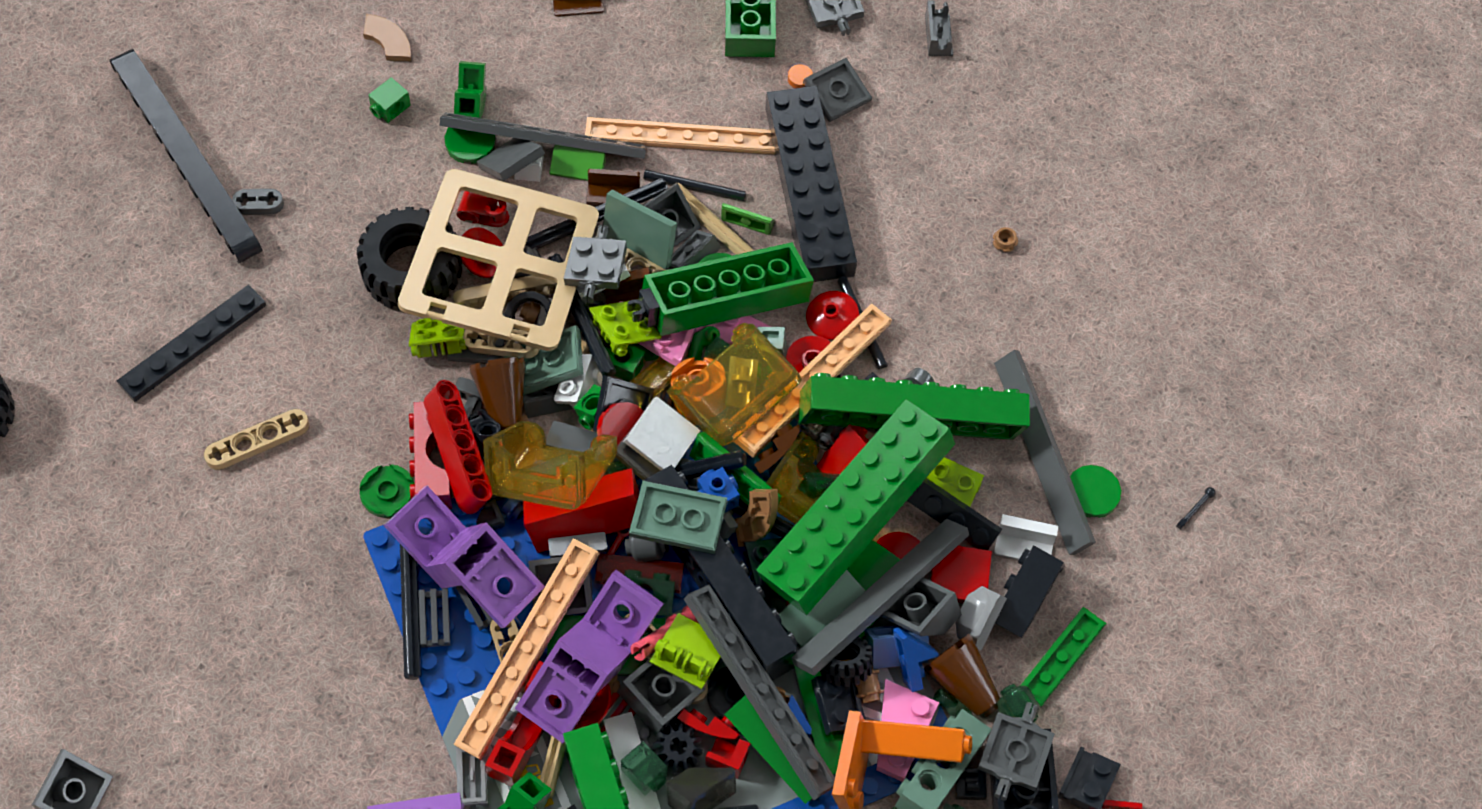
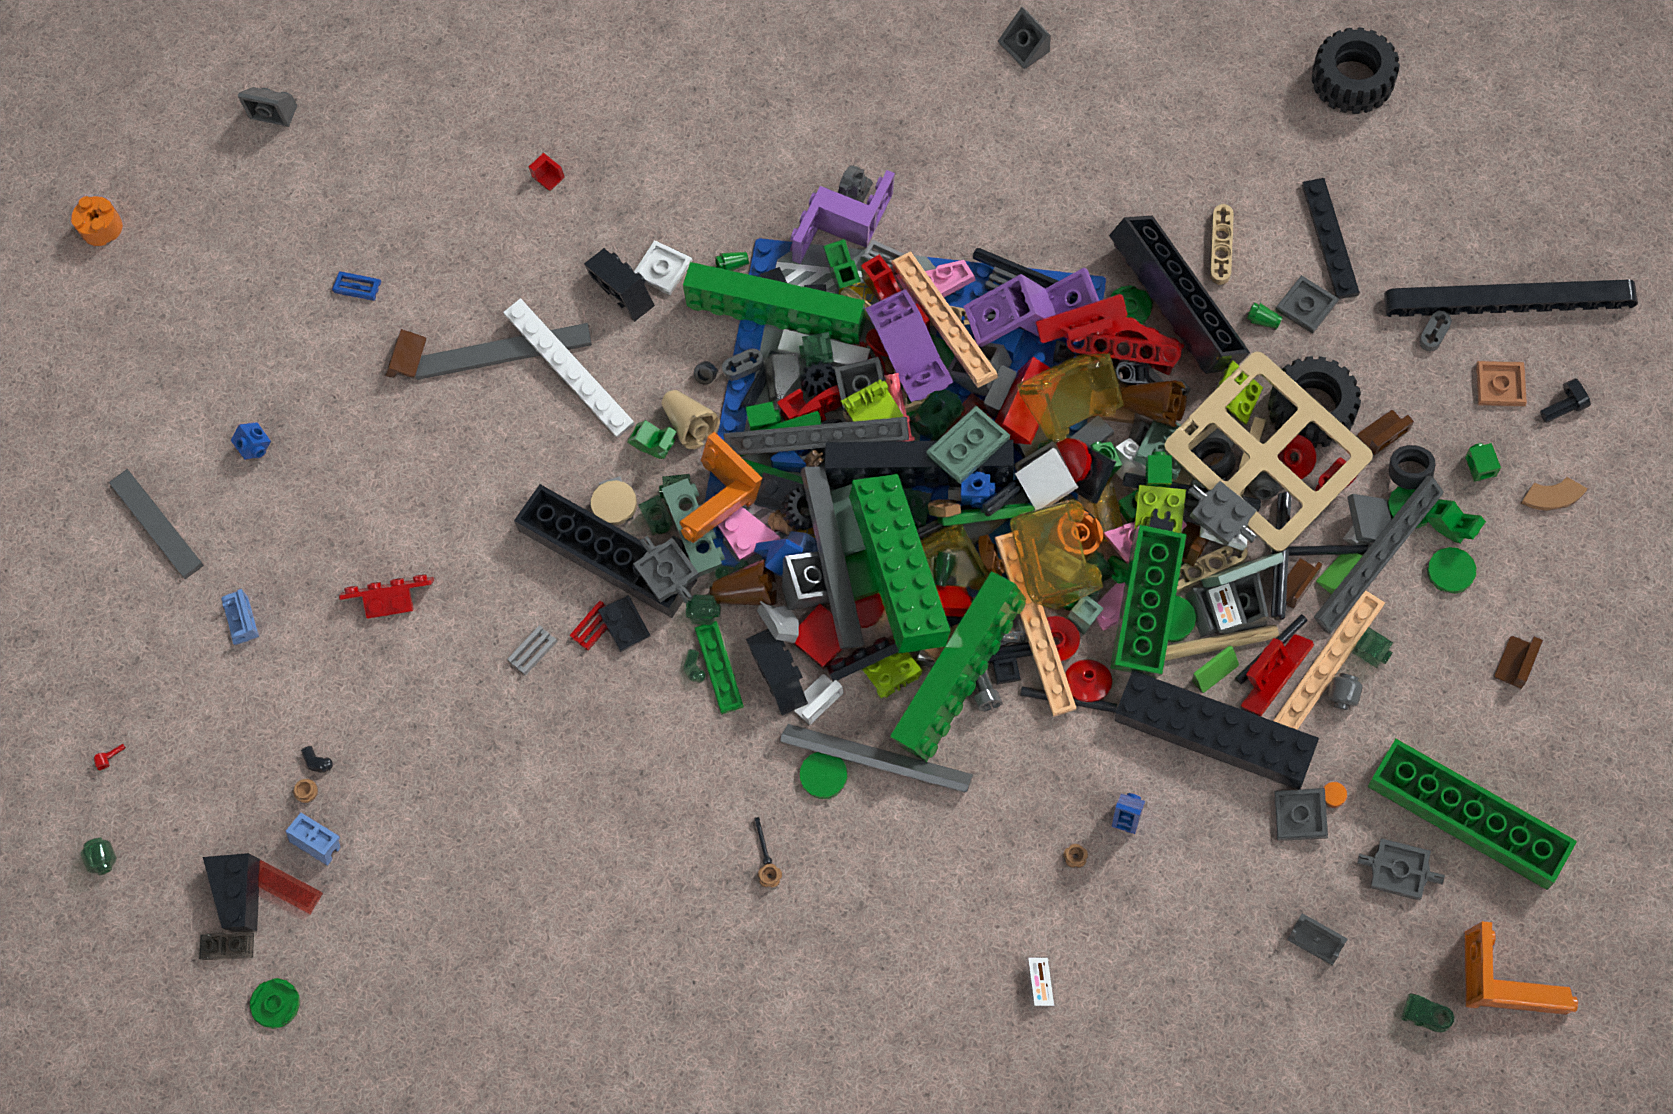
camera: 135 degrees right, 5 degrees up
(273, 55) = (1577, 399): none -> black piece
(287, 125) = (1501, 383): none -> nougat tile
(288, 327) = (1307, 304): none -> dark grey tile
(328, 357) = (1263, 316): none -> green cone
(352, 438) = (1178, 293): none -> black brick
(401, 190) = (1385, 431): none -> reddish brown panel
(423, 135) = (1411, 453): none -> black tyre
(459, 483) = (1082, 320): none -> red bracket
(465, 687) = (946, 278): none -> bright pink wing
(518, 82) = (1451, 570): none -> green tile
(558, 177) = (1326, 550): none -> black bar
(588, 335) = (1159, 470): none -> green brick
(641, 102) = (1373, 648): none -> clear green brick
(689, 228) = (1226, 608): none -> slope
(699, 106) = (1345, 691): none -> dark grey head
(717, 165) = (1273, 671): none -> red bracket
(763, 781) = (762, 416): none -> green brick
(942, 204) = (1128, 812): none -> blue slope
(1084, 682) = (691, 669): none -> clear green arm
(1136, 210) = (1040, 982): none -> slope
(1222, 473) = (769, 869): none -> medium nougat plate

